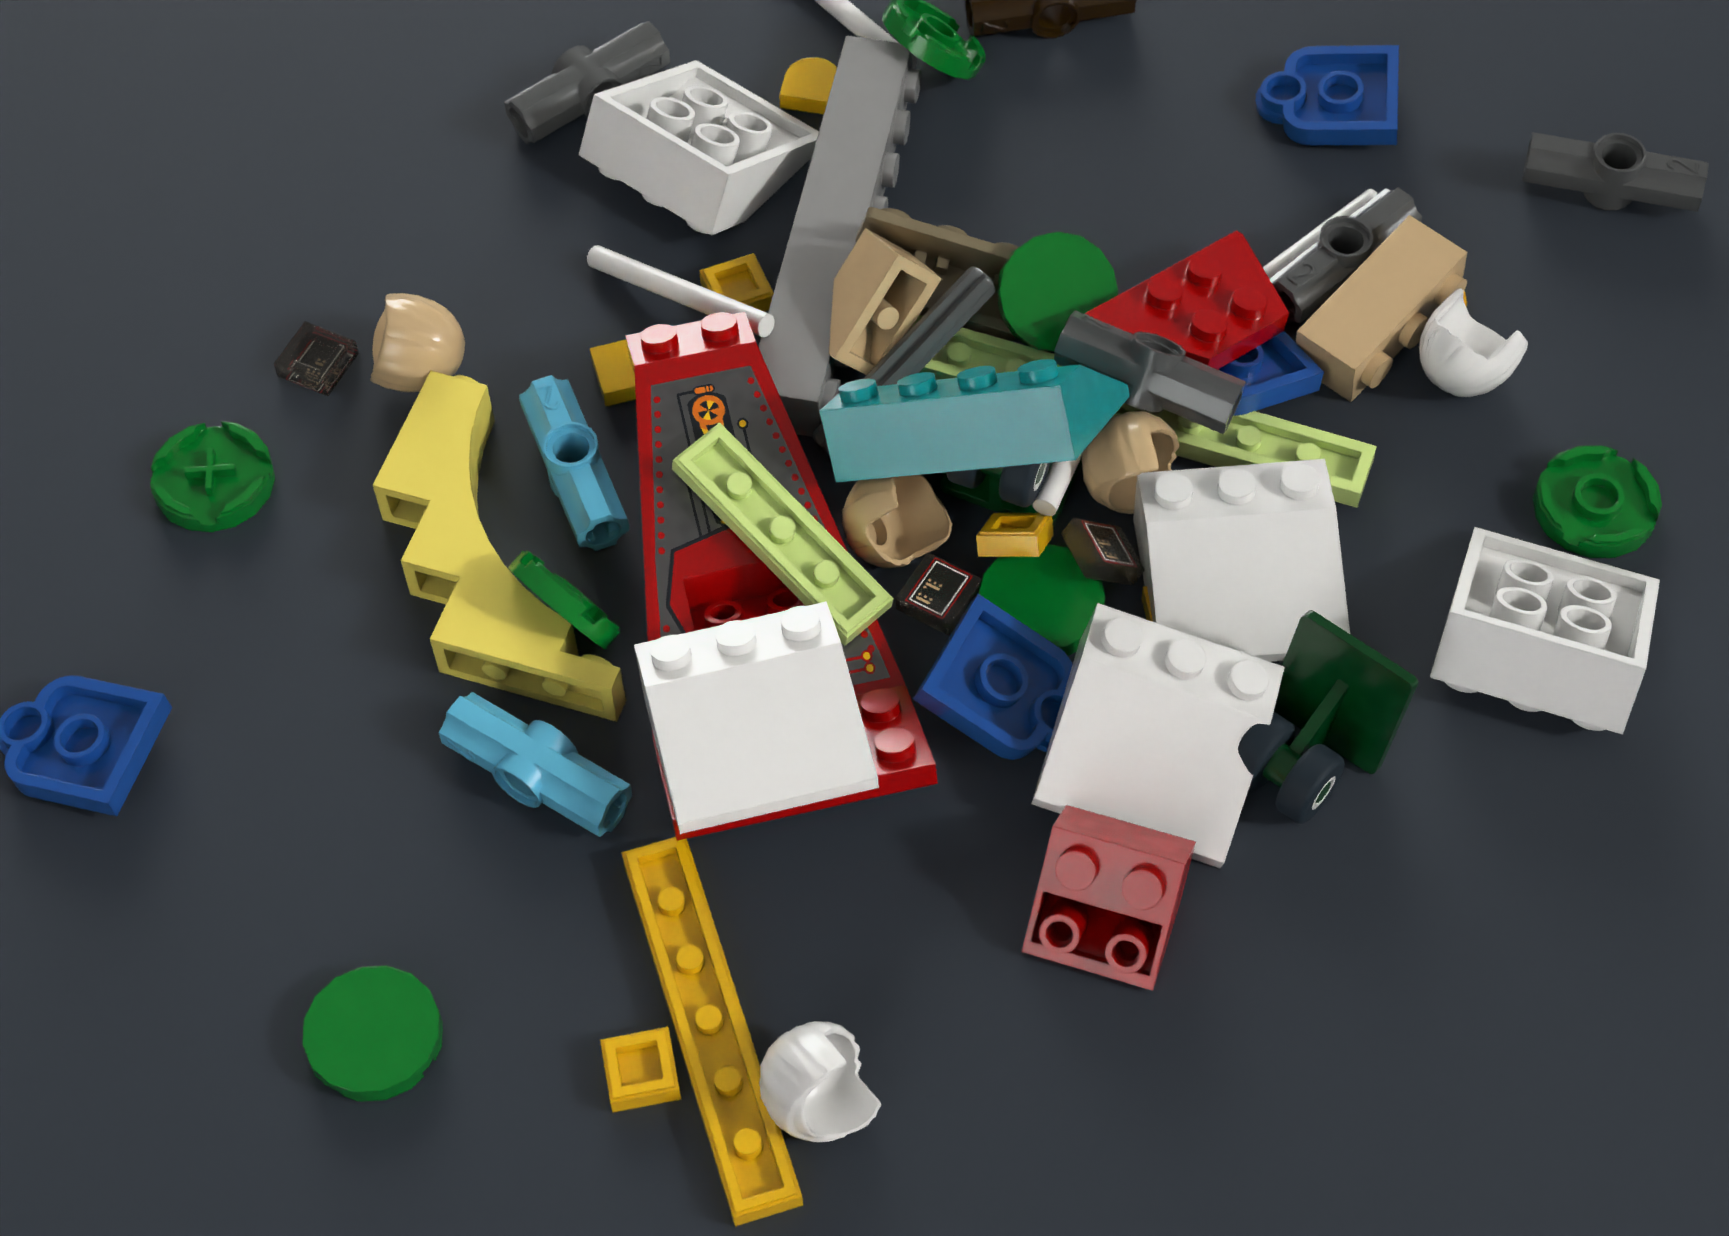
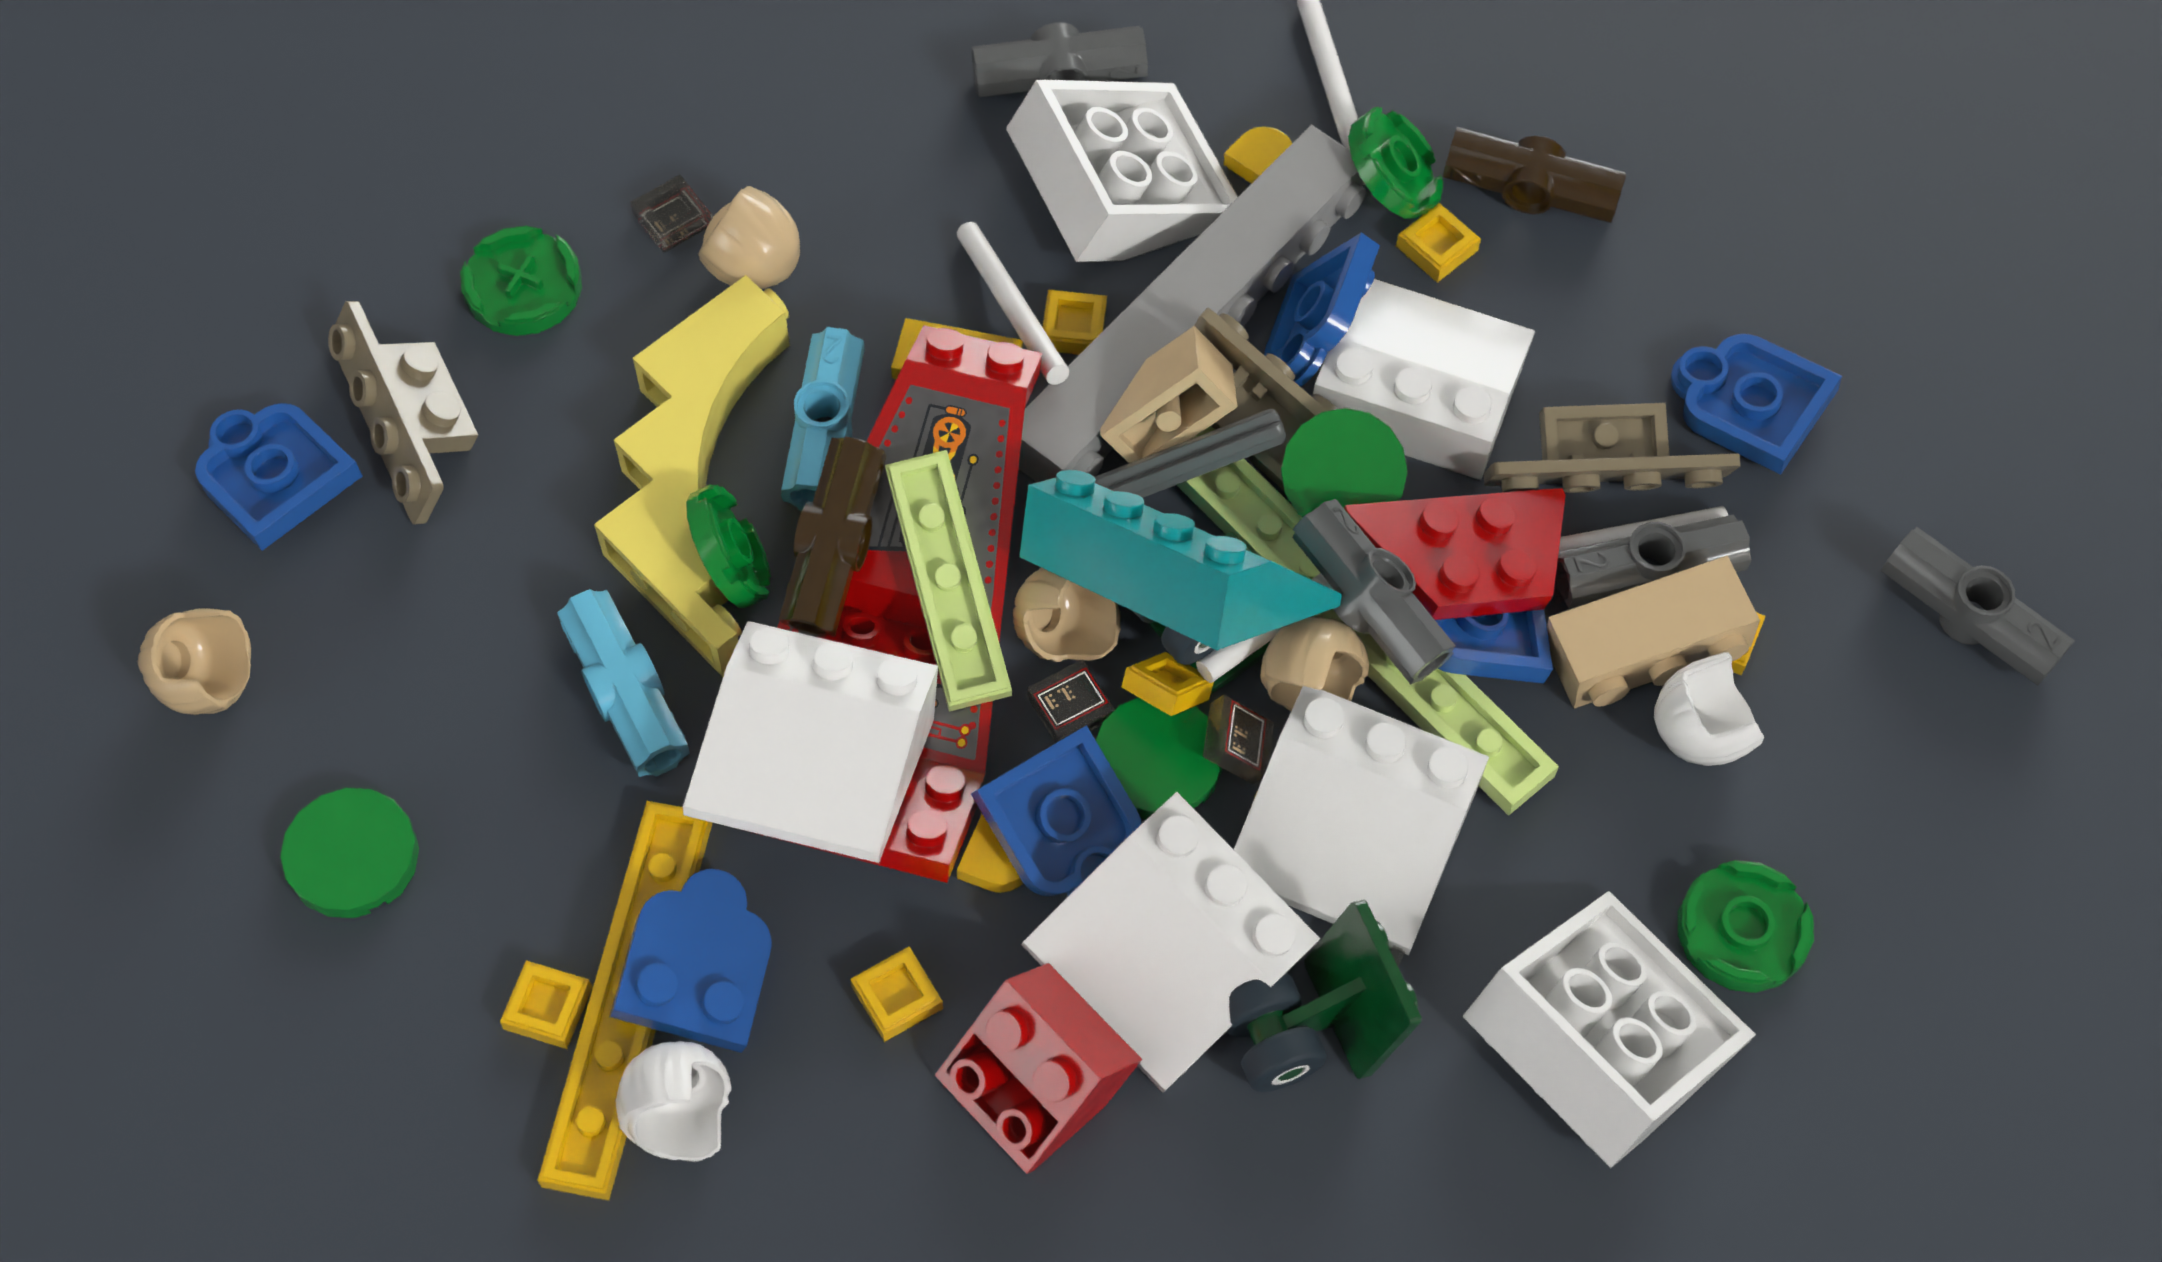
camera: 25 degrees right, 5 degrees up
(123, 934) = (196, 660): none -> tan hair
(173, 630) = (406, 405): none -> dark tan bracket
(661, 540) = (833, 537): none -> dark brown piece
(757, 962) = (696, 963): none -> blue plate
(945, 902) = (896, 994): none -> yellow tile
(951, 169) = (1322, 306): none -> blue plate
(954, 752) = (987, 863): none -> yellow tile
(1003, 90) = (1438, 242): none -> yellow tile
(1071, 183) = (1428, 374): none -> white slope
(1249, 181) = (1608, 445): none -> dark tan bracket

